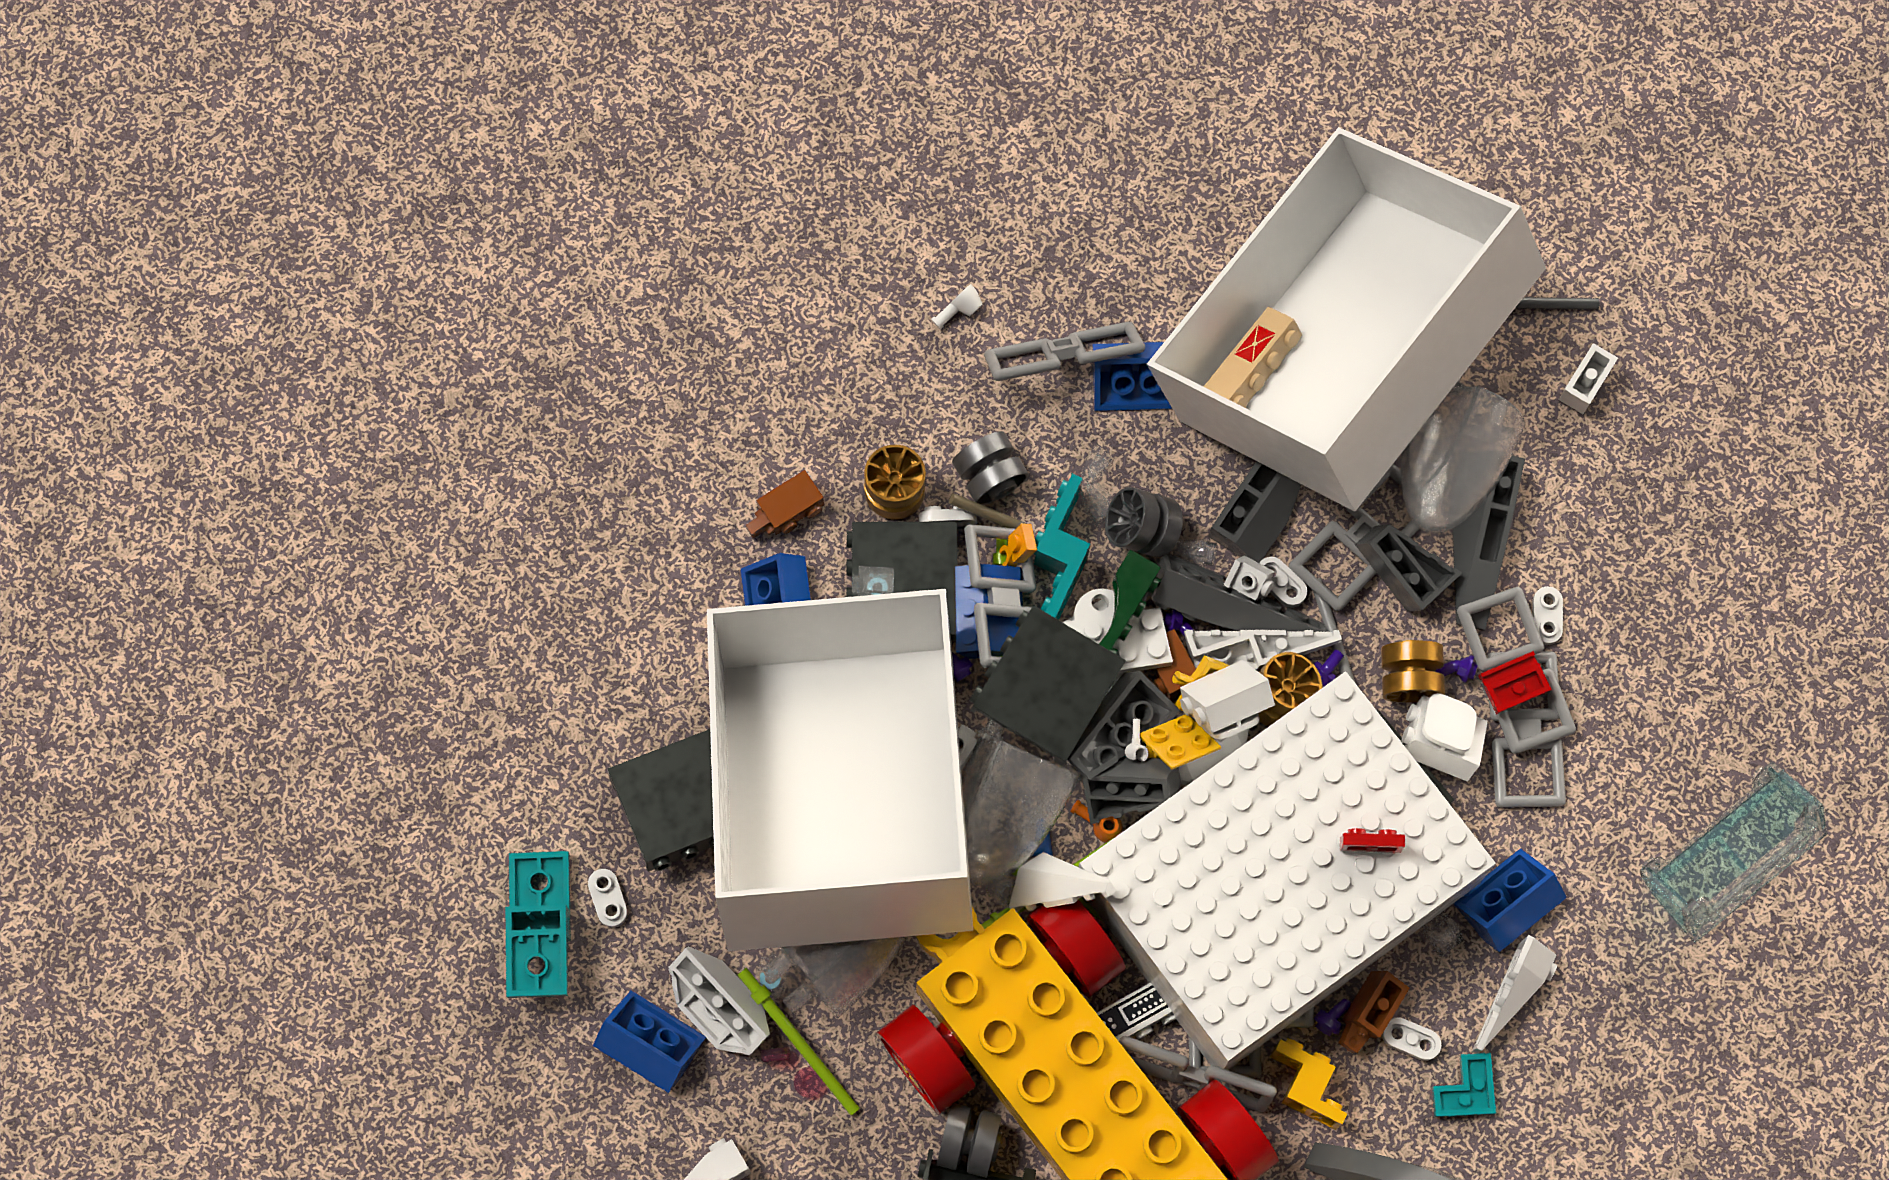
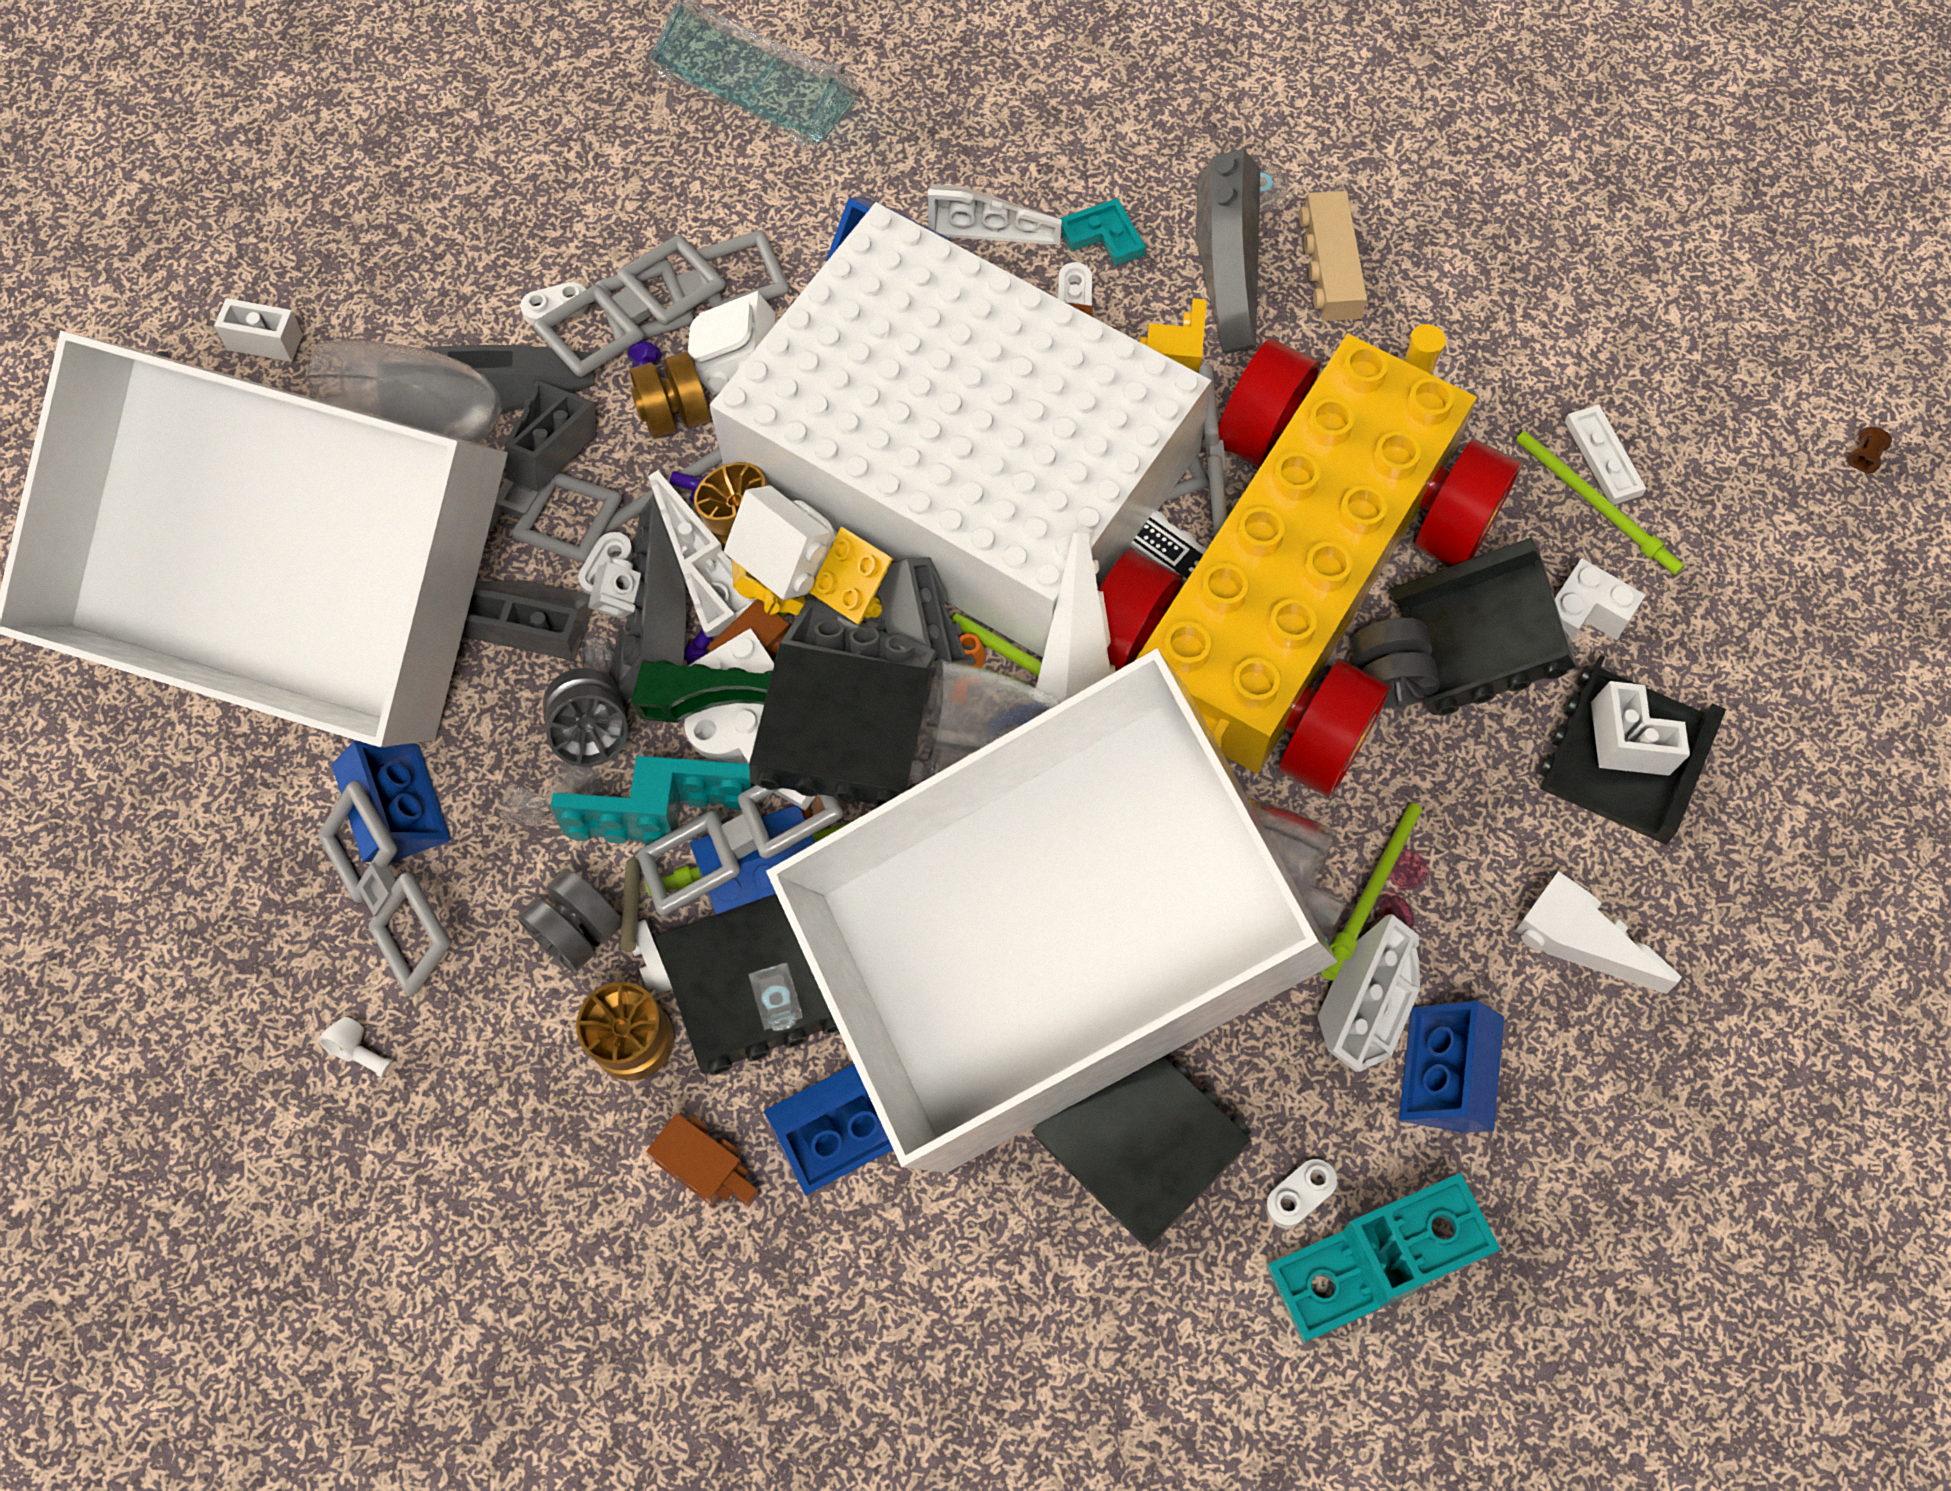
camera: 110 degrees left, 10 degrees down
(1020, 545) = (664, 844): light orange plate -> none
(1130, 750) = (880, 619): white hand -> none
(1255, 357) = (327, 659): tan brick -> none
(1385, 841) = (909, 317): red plate -> none
(1514, 682) = (648, 291): red plate -> none

